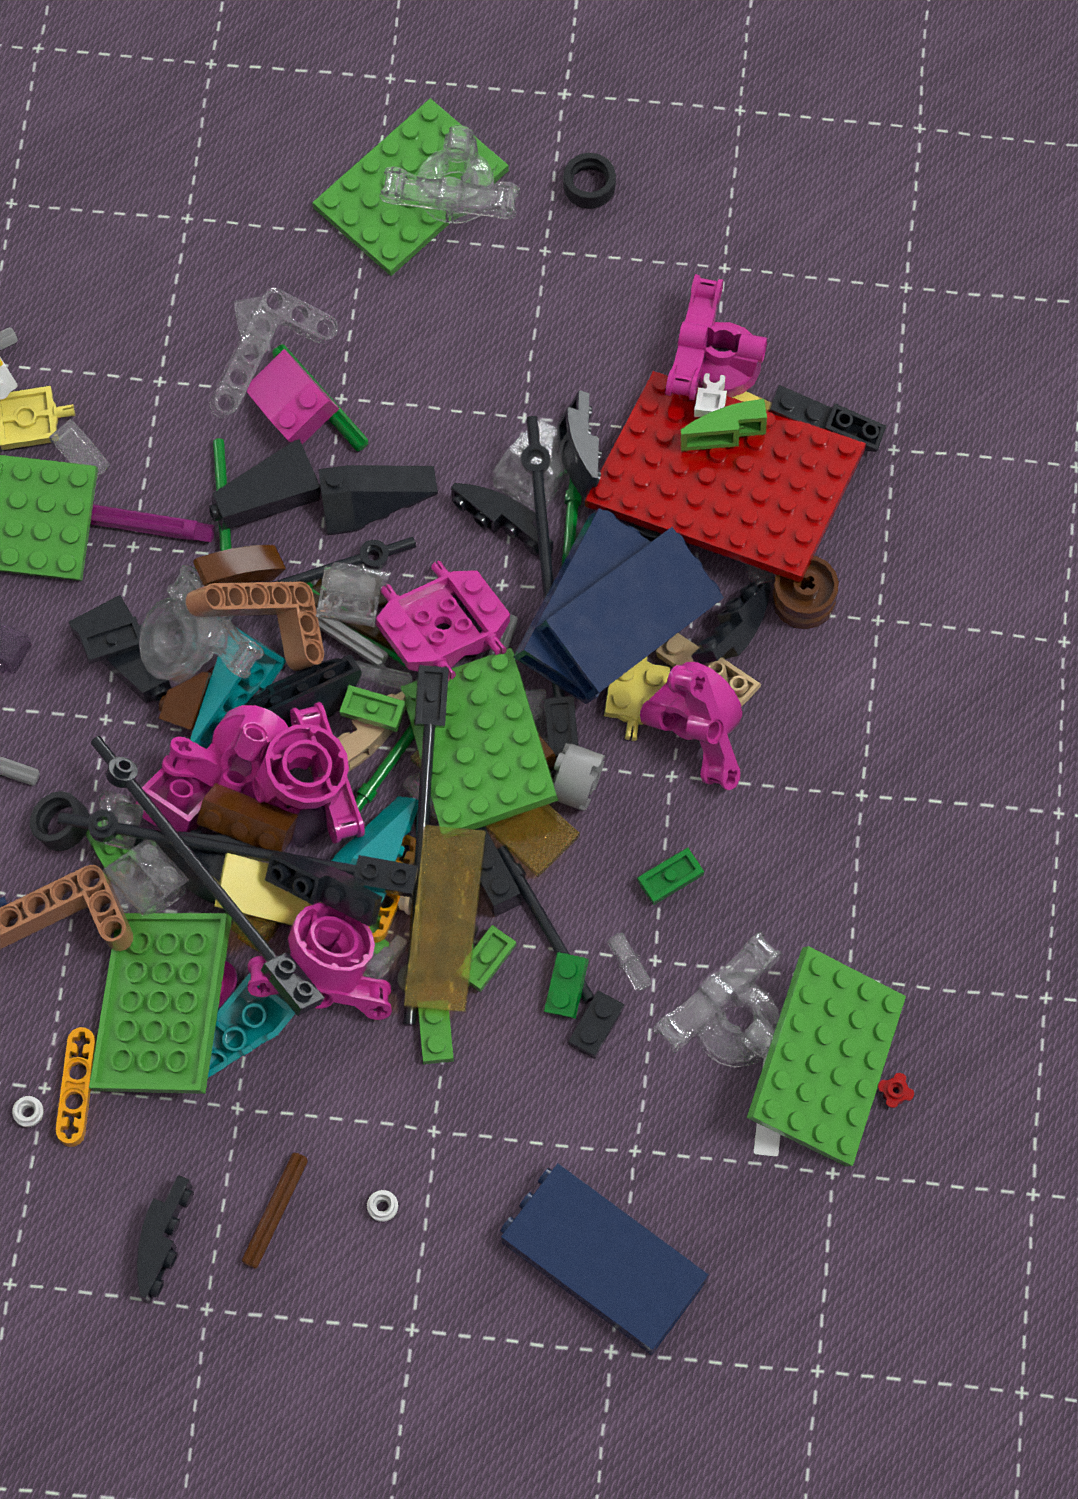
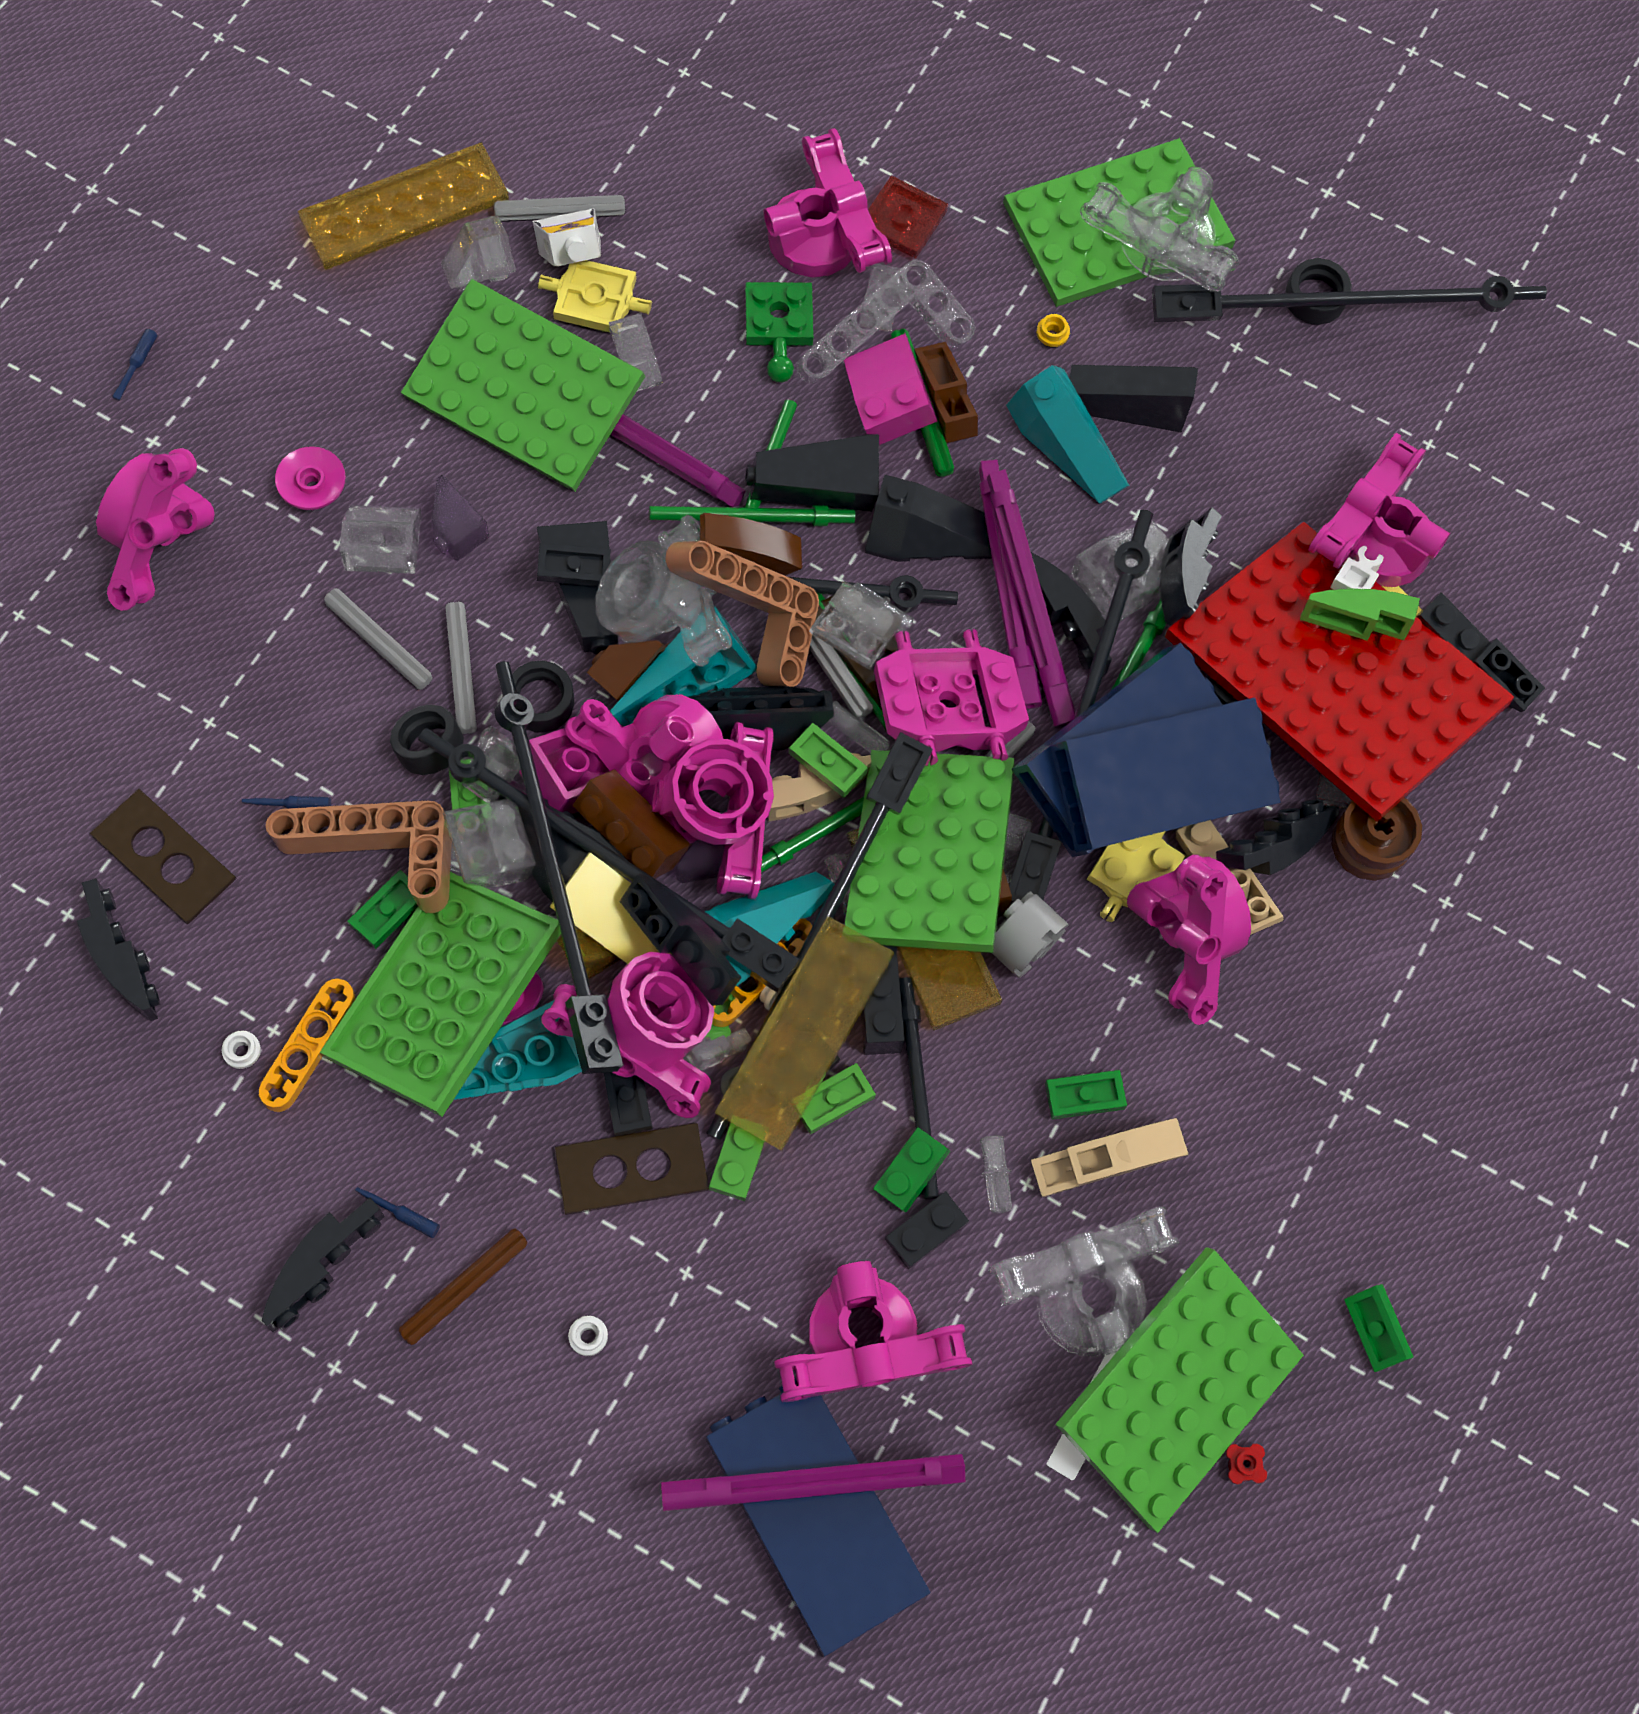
camera: 15 degrees right, 0 degrees up
(57, 754) = (461, 667): none -> light grey axle
(88, 962) = (384, 911): none -> green plate
(138, 730) = (551, 672): none -> black tyre
(182, 262) = (842, 221): none -> dark pink piece
(185, 387) = (769, 330): none -> green plate
(208, 1178) = (405, 1215): none -> dark blue piece
(240, 253) = (906, 215): none -> clear red plate
(279, 521) = (817, 515): none -> green bar
(332, 1106) = (584, 1194): none -> dark brown piece
(335, 1027) = (628, 1104): none -> black plate
(337, 381) = (948, 392): none -> reddish brown slope
(397, 290) = (1053, 323): none -> yellow plate
(436, 373) = (1062, 429): none -> teal wedge
(448, 511) = (1013, 619): none -> magenta piece
(472, 519) = (1031, 599): none -> magenta piece
(479, 325) = (1137, 394): none -> black slope
(500, 232) = (1197, 303): none -> black bar
(574, 1145) = (899, 1356): none -> dark pink piece
(591, 1234) = (812, 1482): none -> magenta piece
(706, 914) = (1109, 1157): none -> tan slope
(951, 953) = (1378, 1328): none -> green plate

